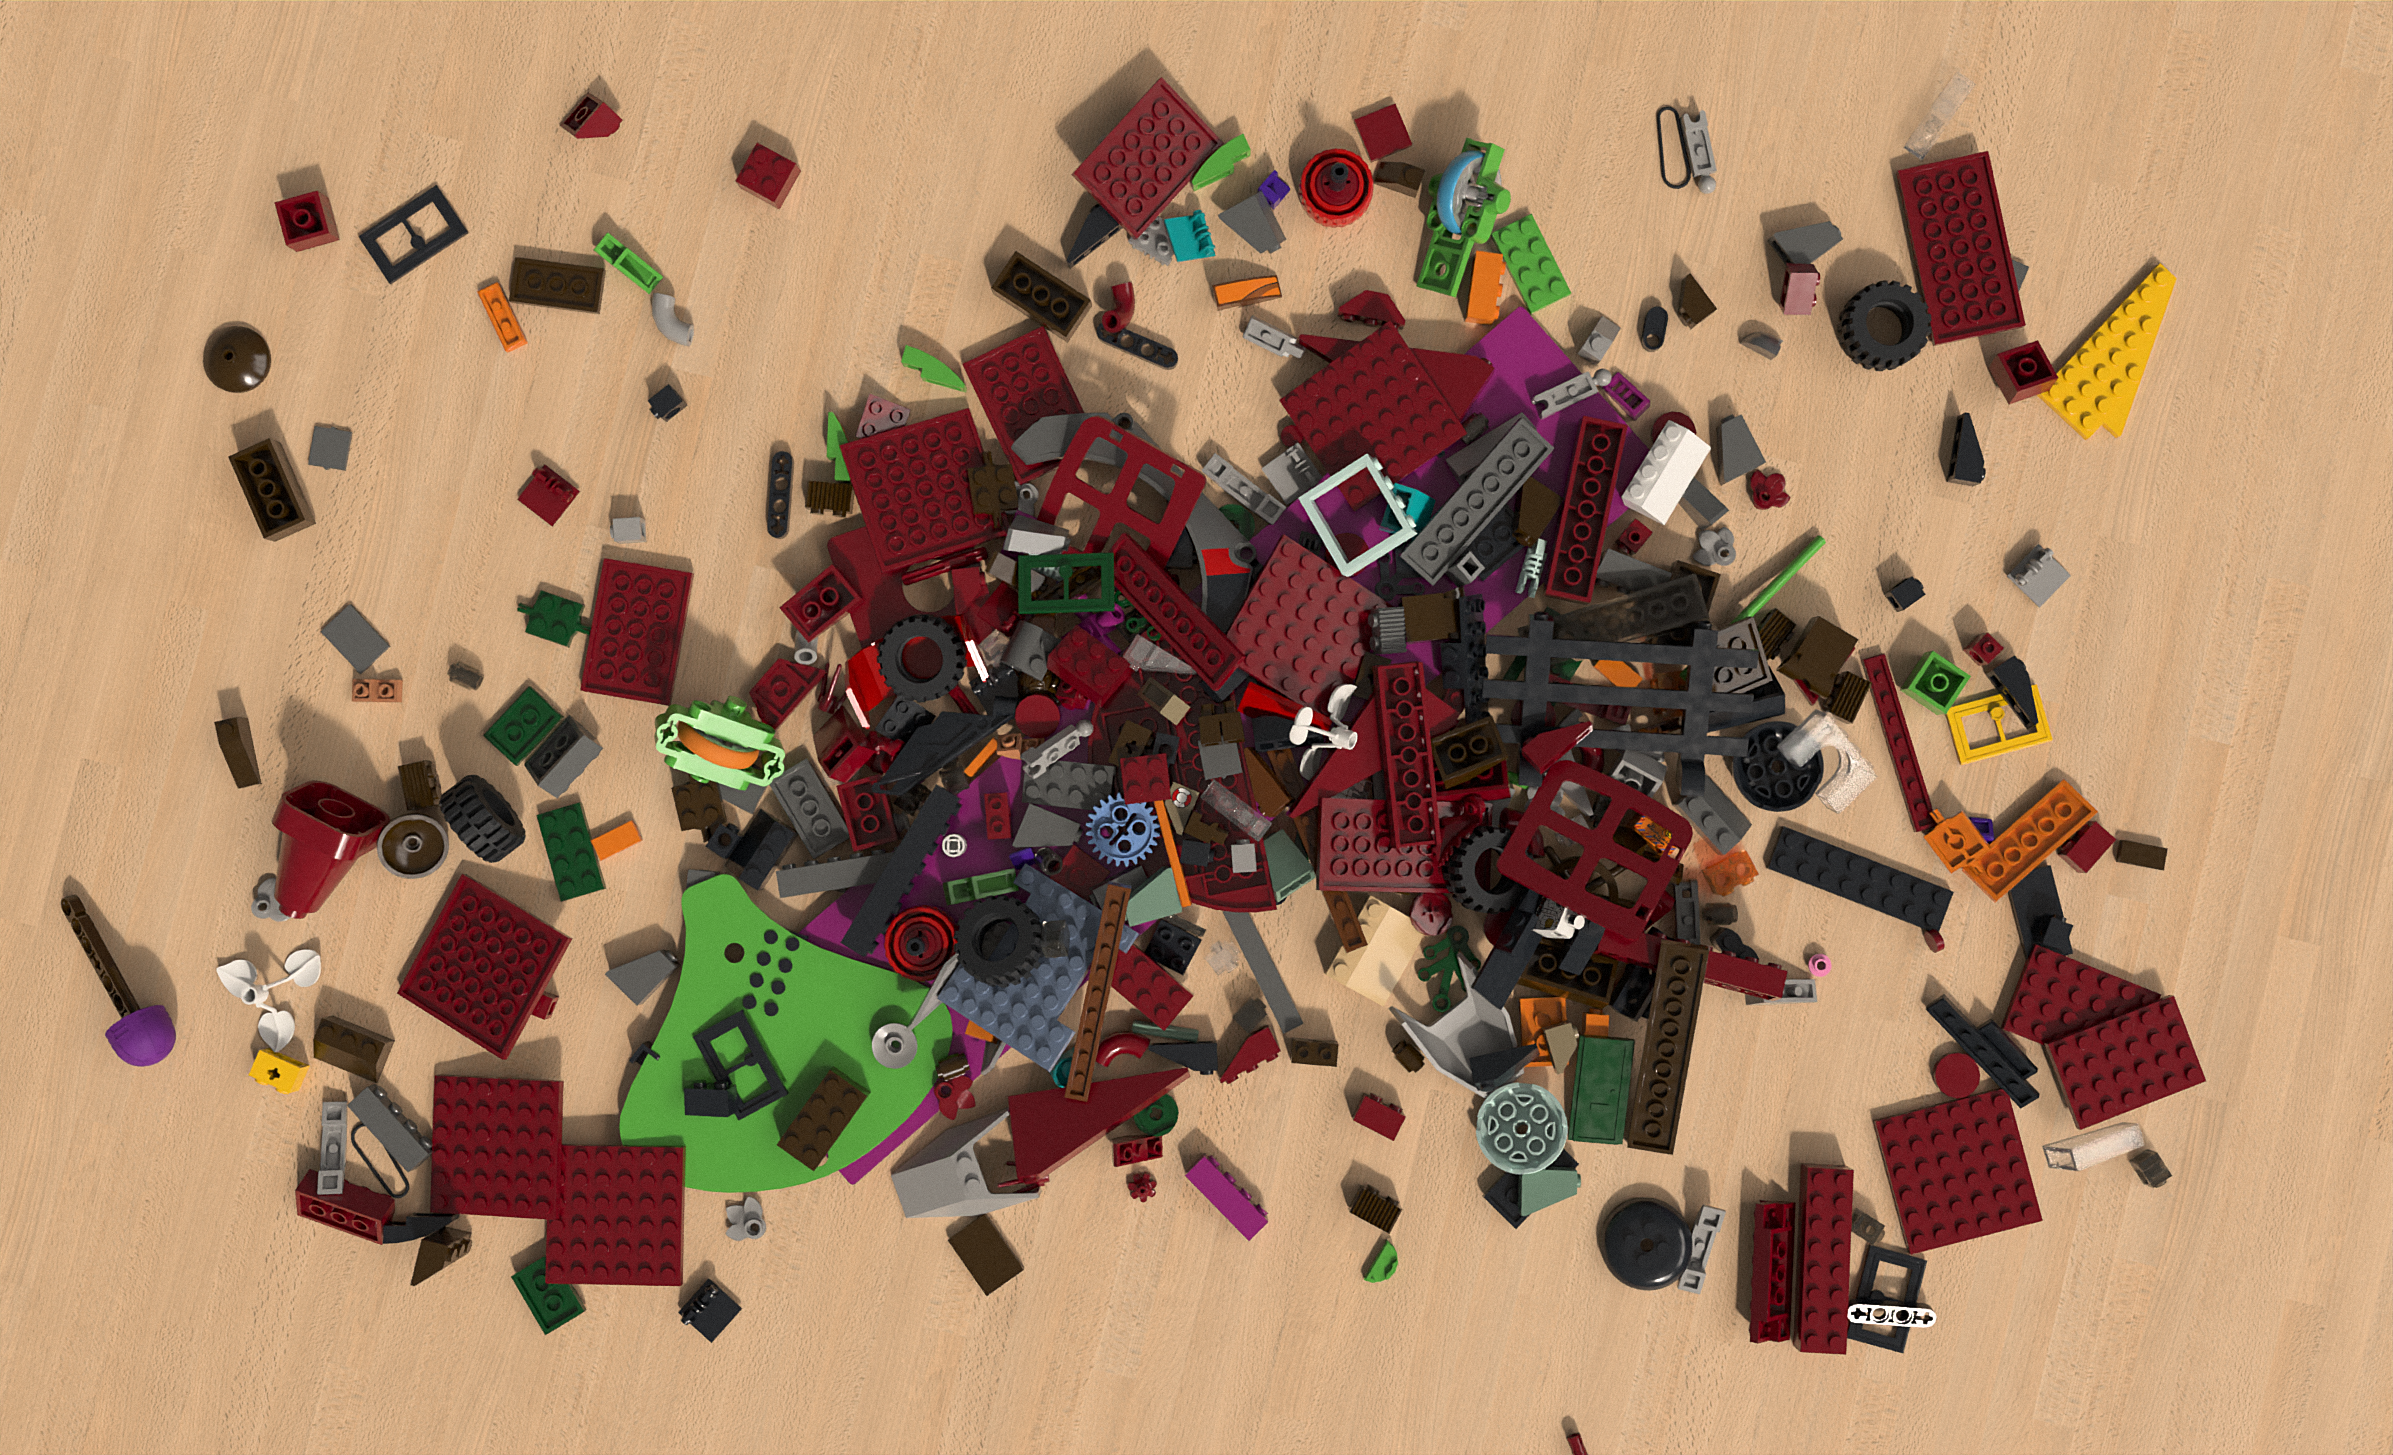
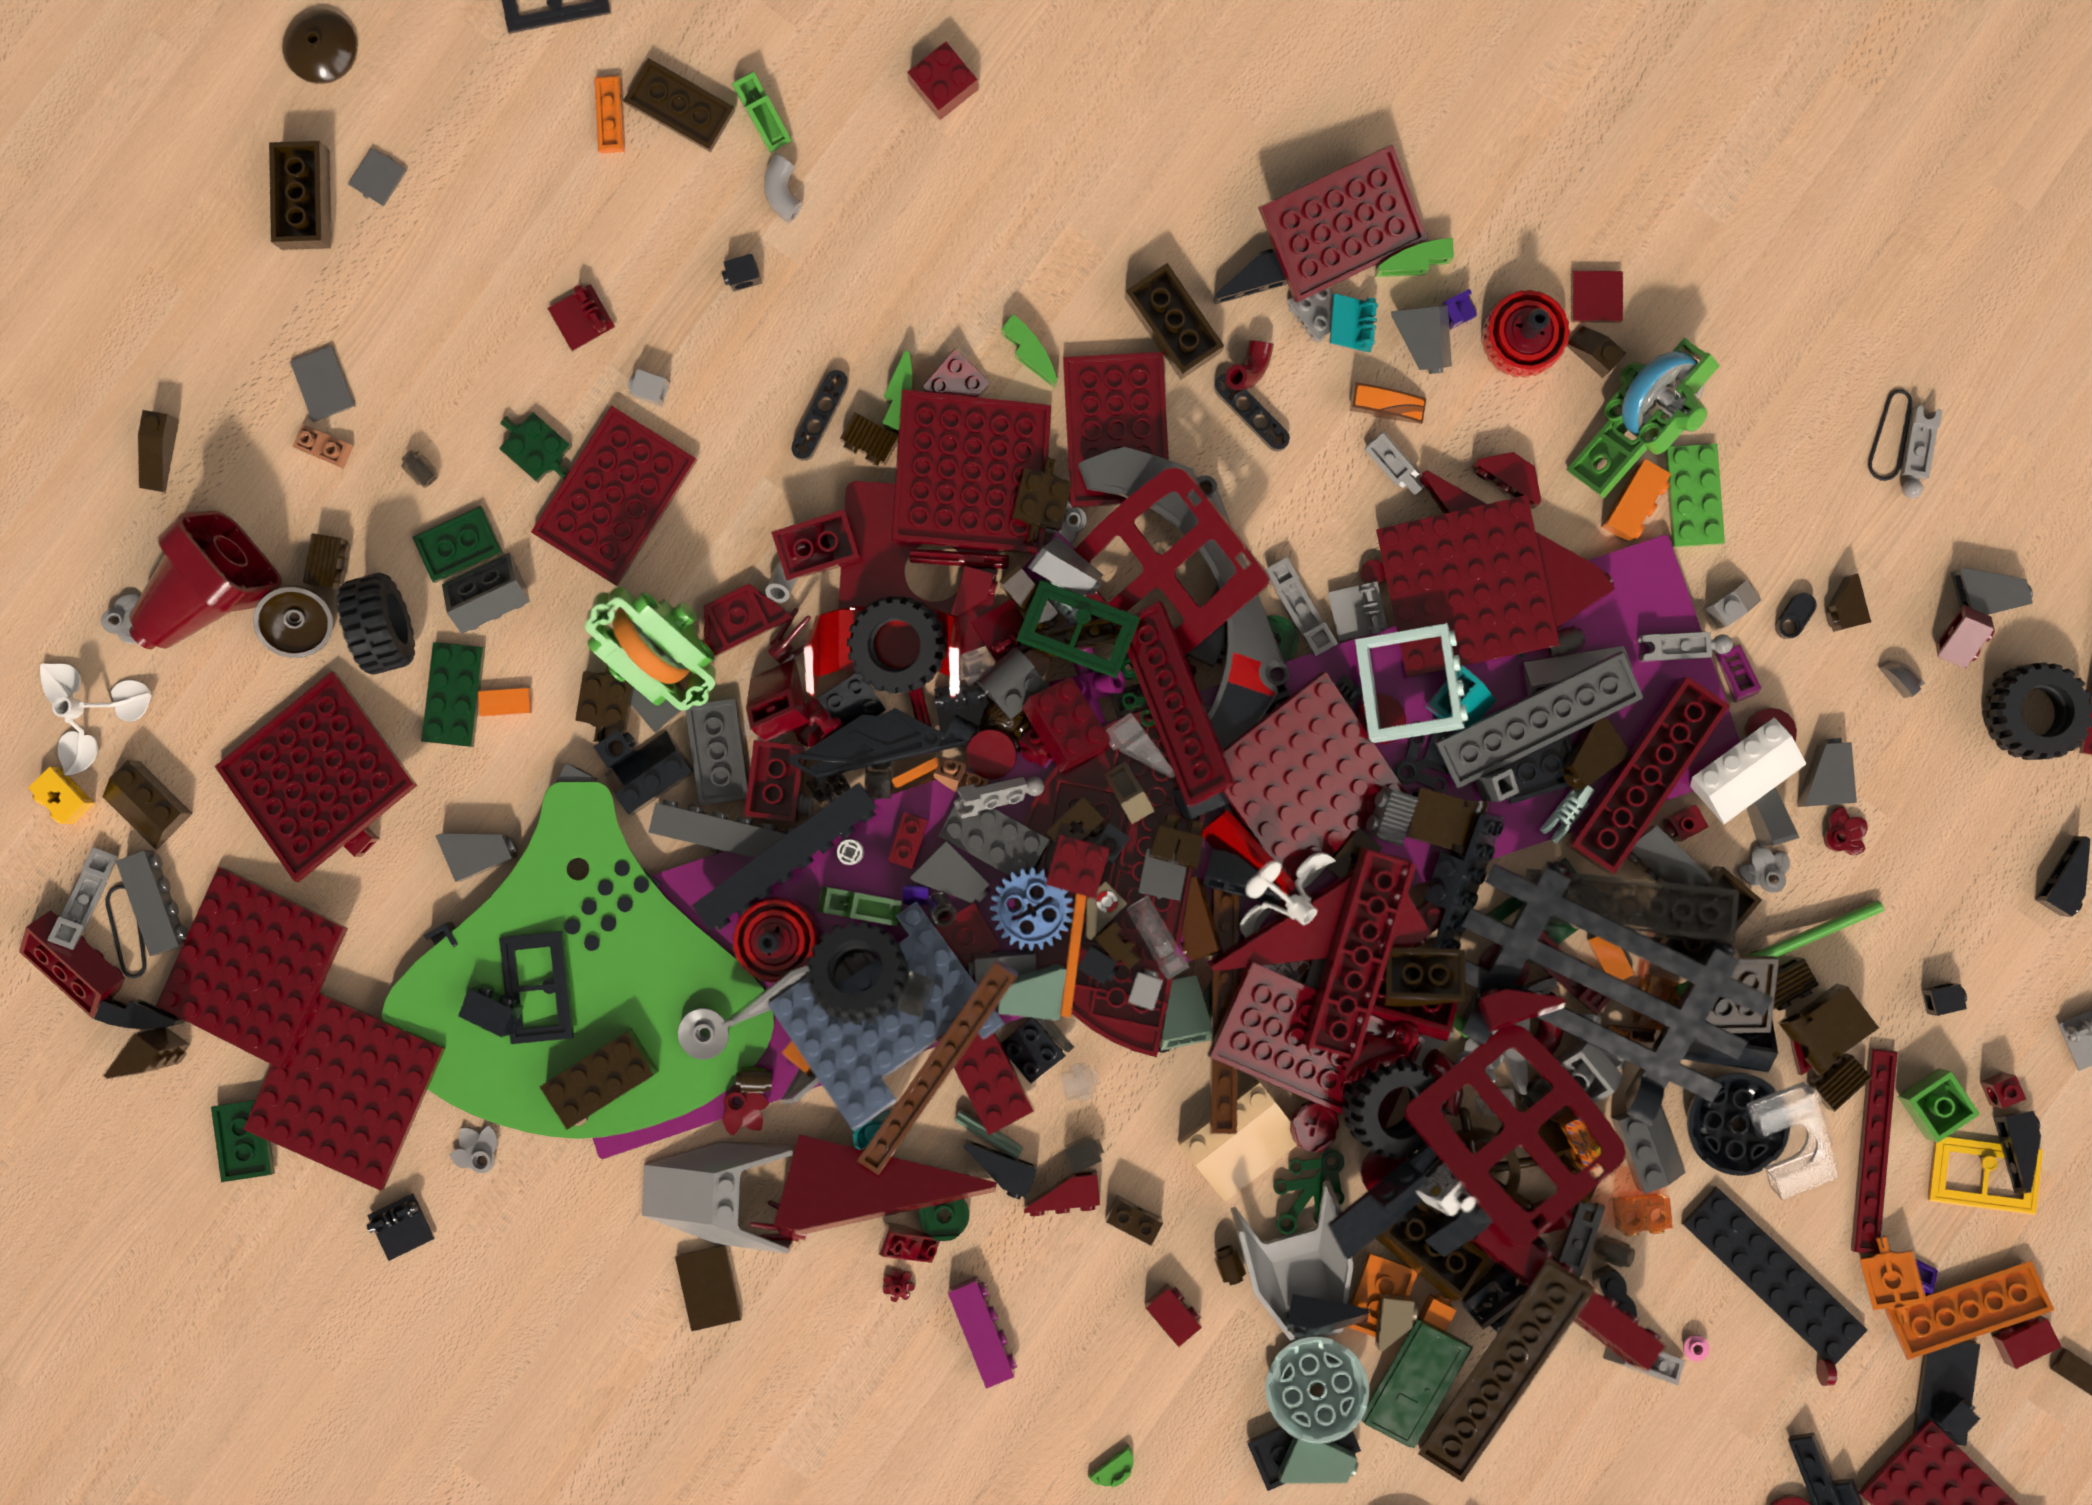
camera: 20 degrees right, 0 degrees up
(1121, 1043) = (938, 1128): dark red cylinder -> none
(1264, 970) = (1116, 1114): dark grey tile -> none
(1375, 1208) = (1130, 1408): dark brown brick -> none

